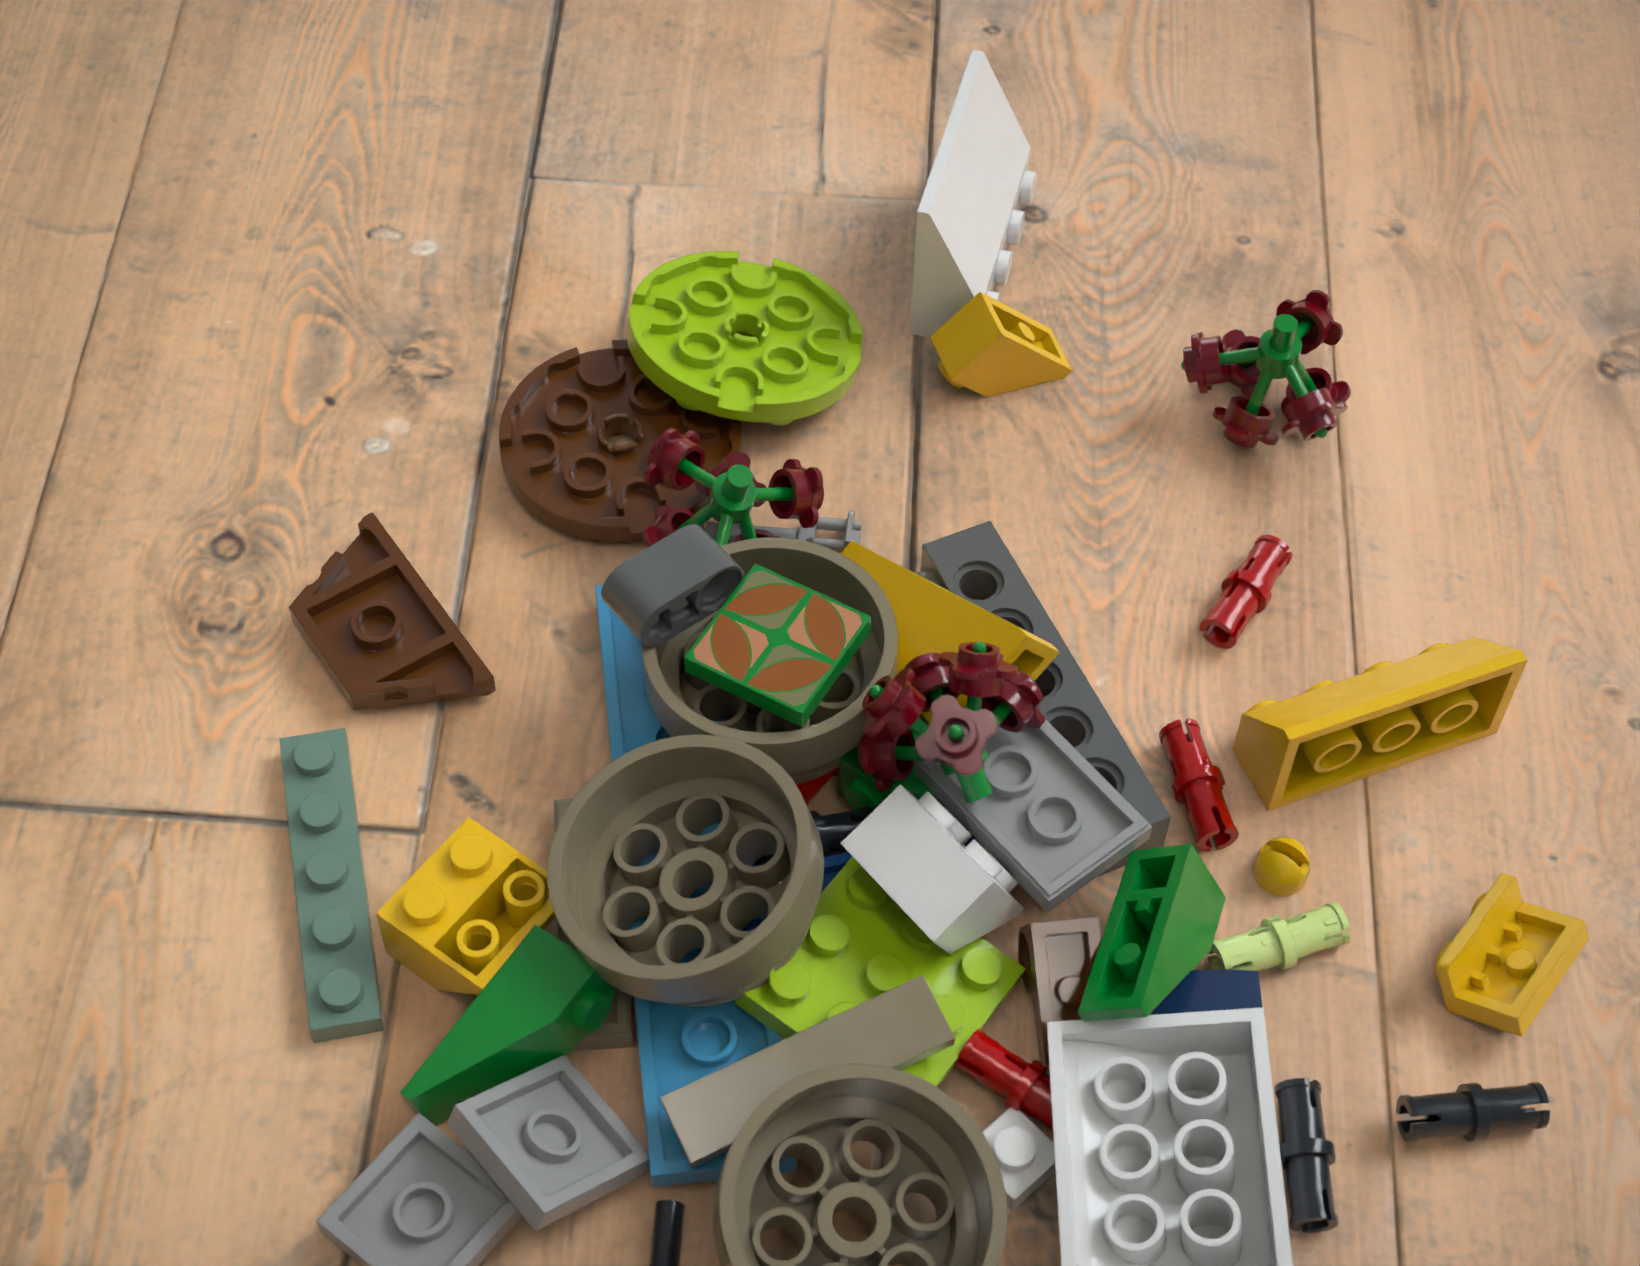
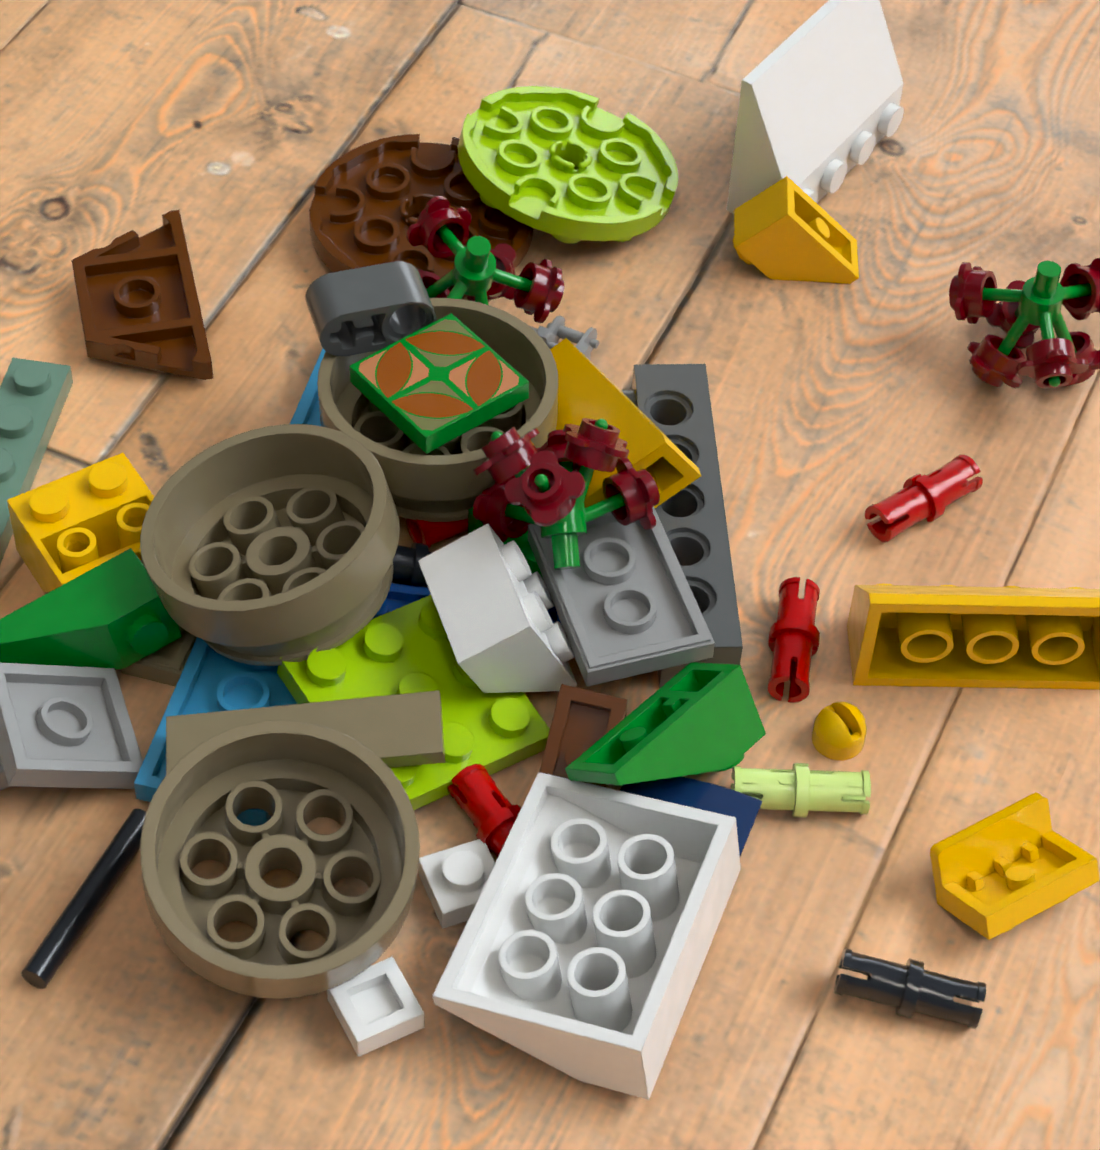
camera: 20 degrees right, 5 degrees down
(1306, 1155) = (730, 970): black pin -> none

